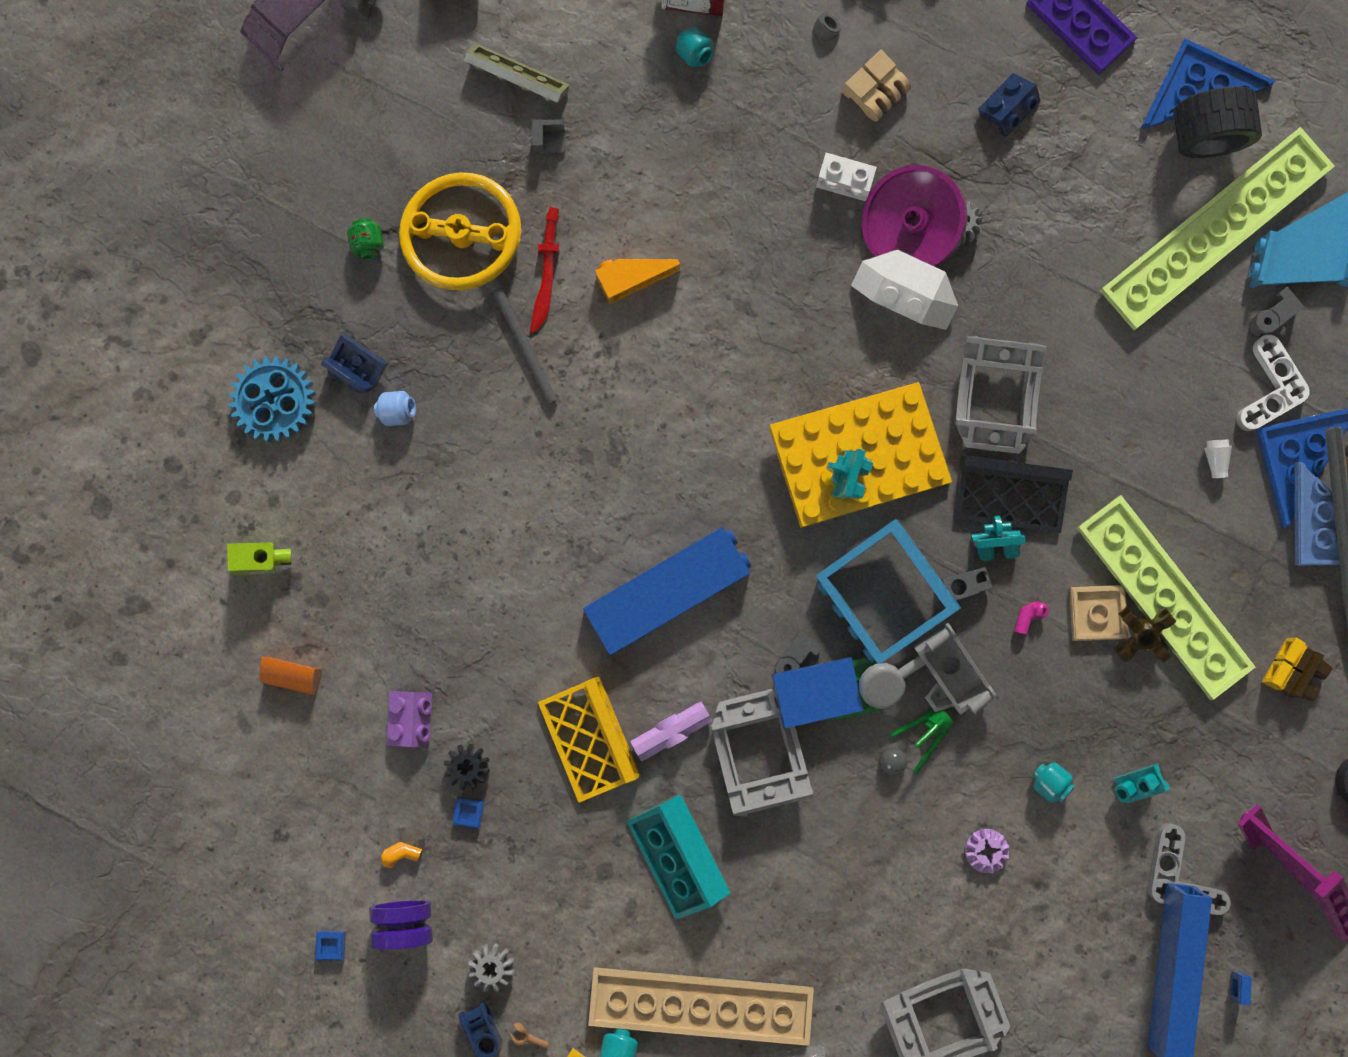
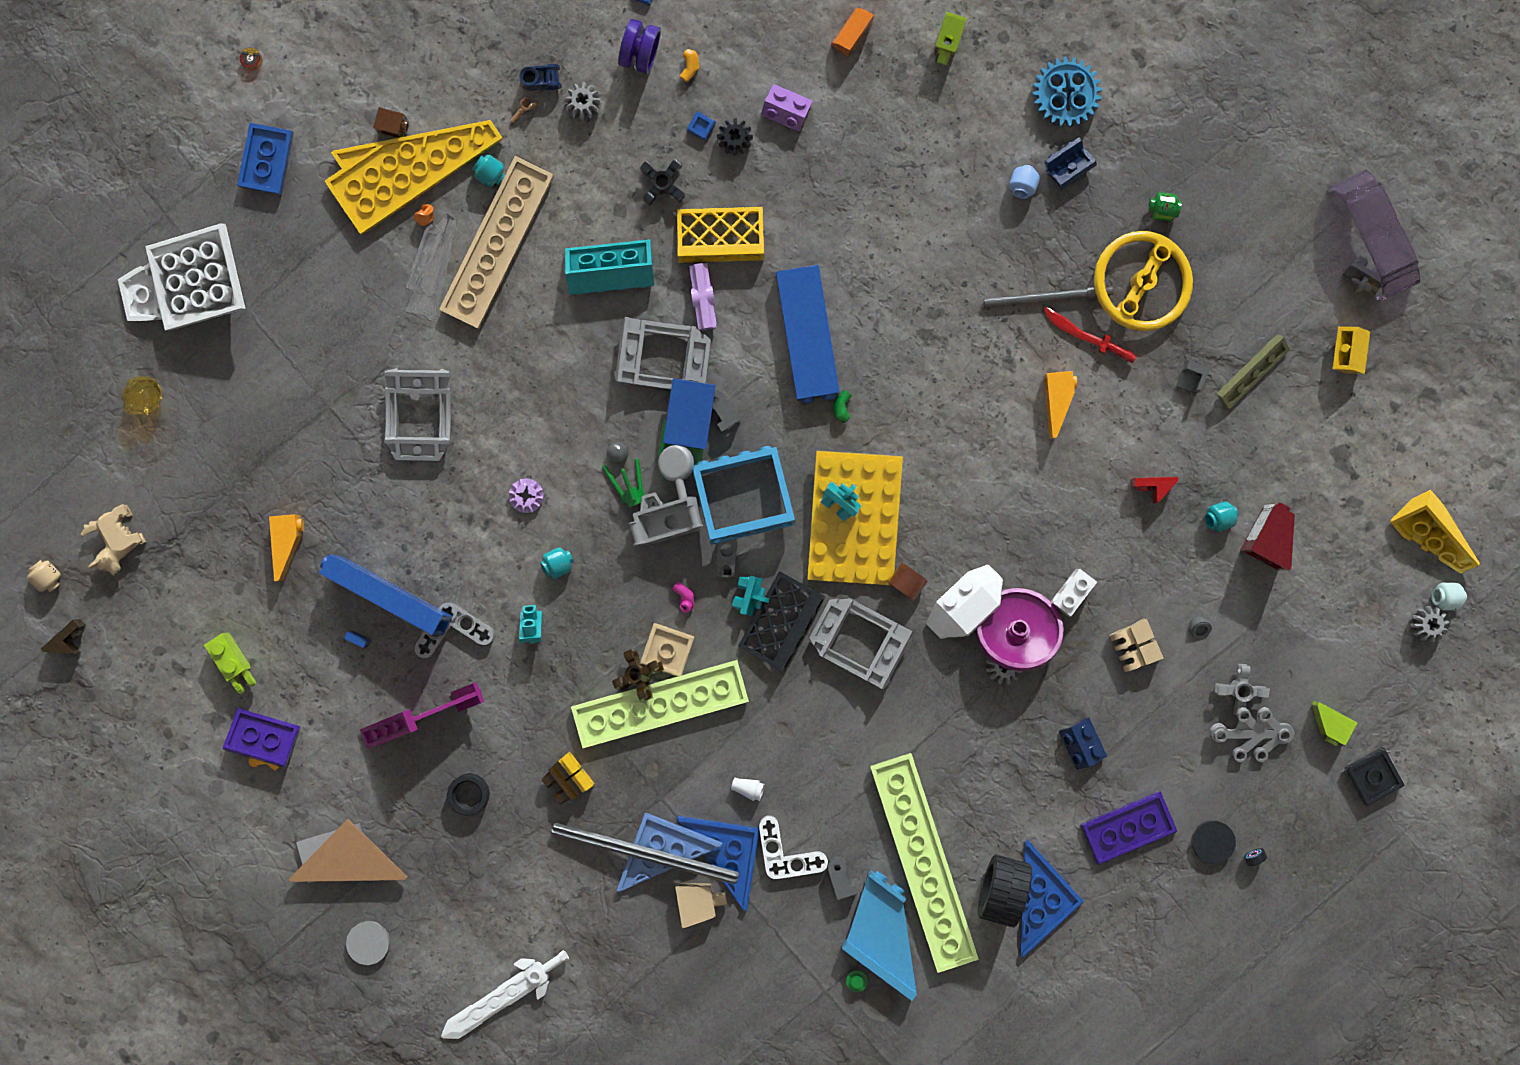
camera: 110 degrees right, 5 degrees up
(557, 820) = (652, 194): none -> black pin
(686, 127) = (1159, 485): none -> red slope
(737, 521) = (839, 407): none -> green arm
(910, 365) = (907, 581): none -> copper piece

